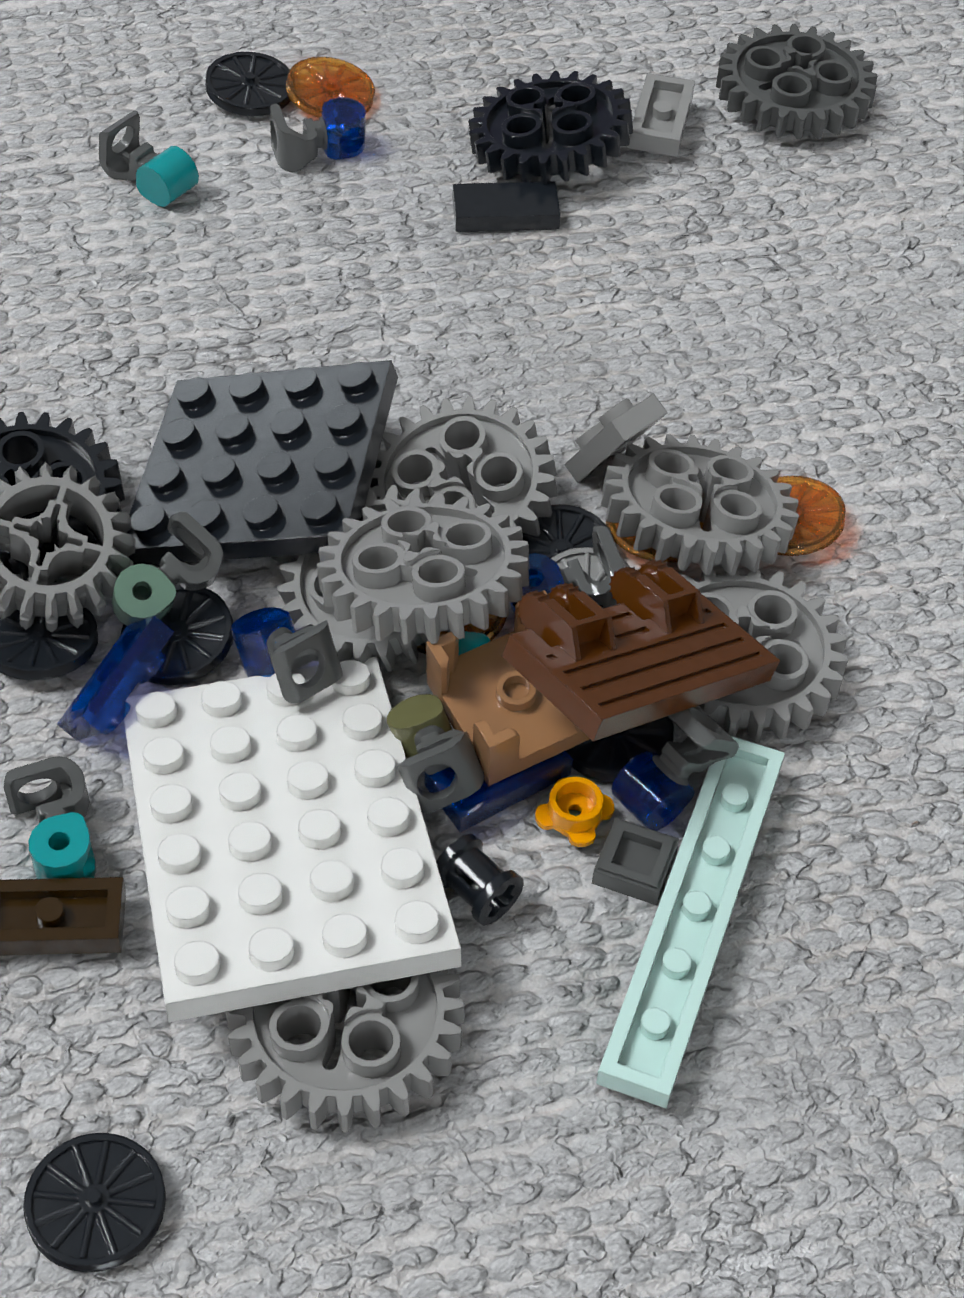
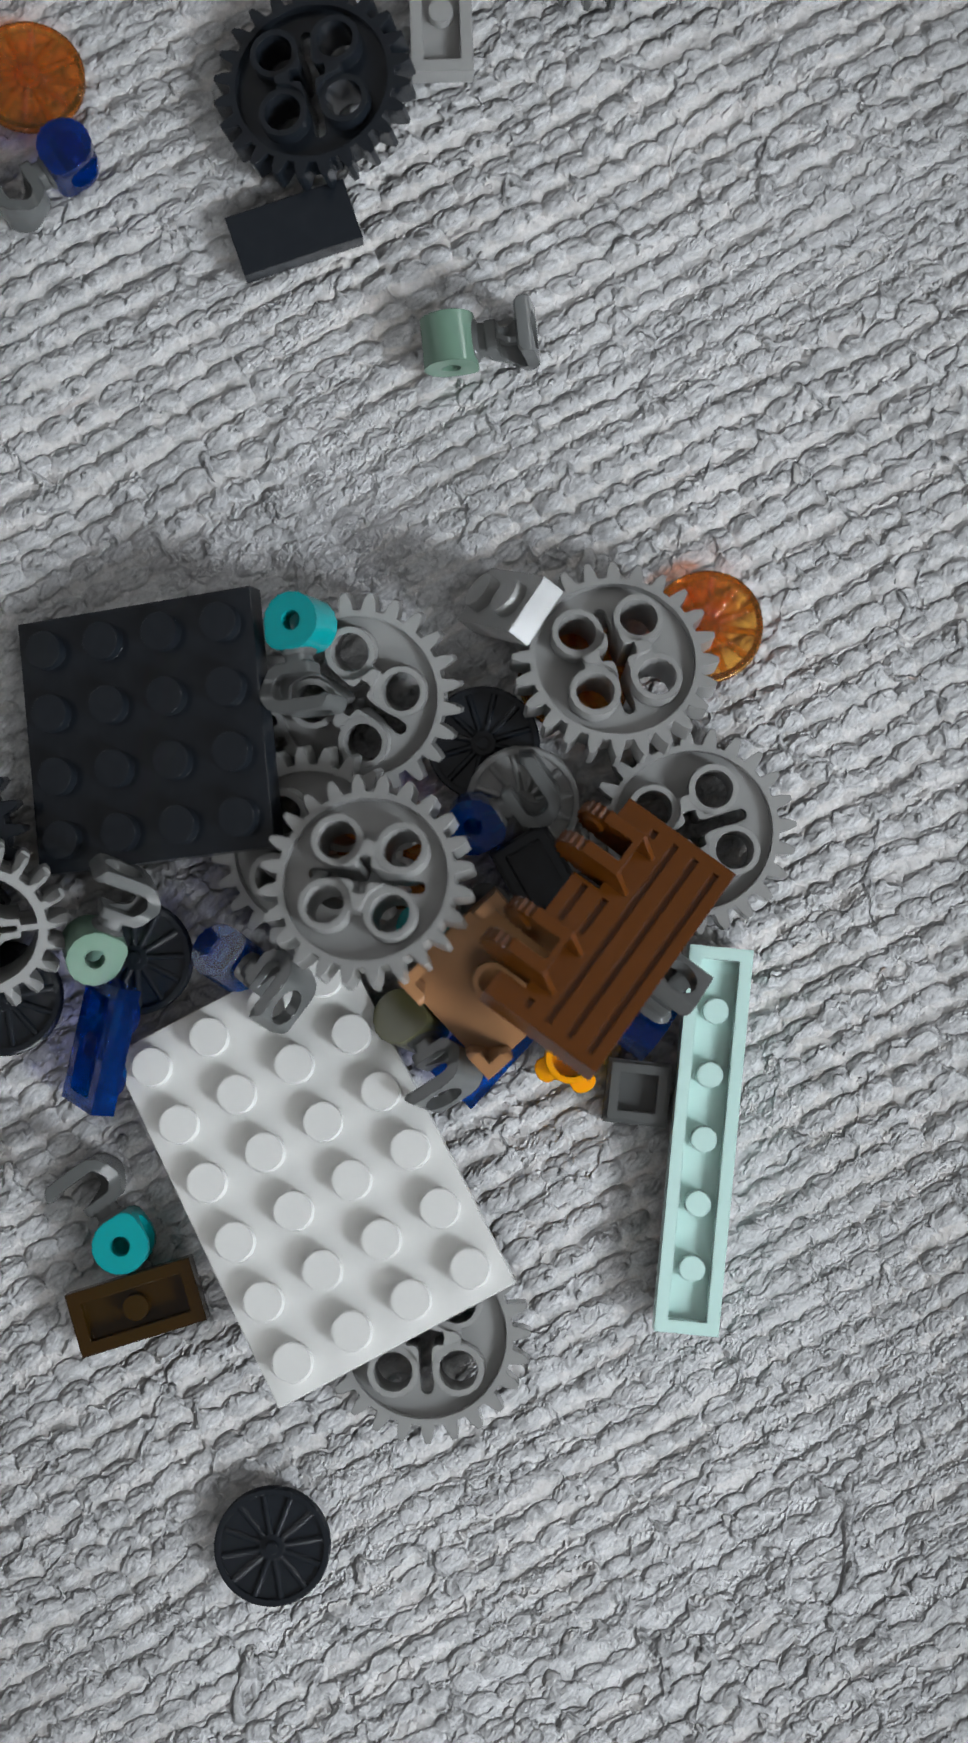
camera: 15 degrees left, 35 degrees up
(424, 407) = (299, 630): none -> leg
(478, 879) = (502, 1163): black bush -> none
(619, 278) = (457, 343): none -> leg

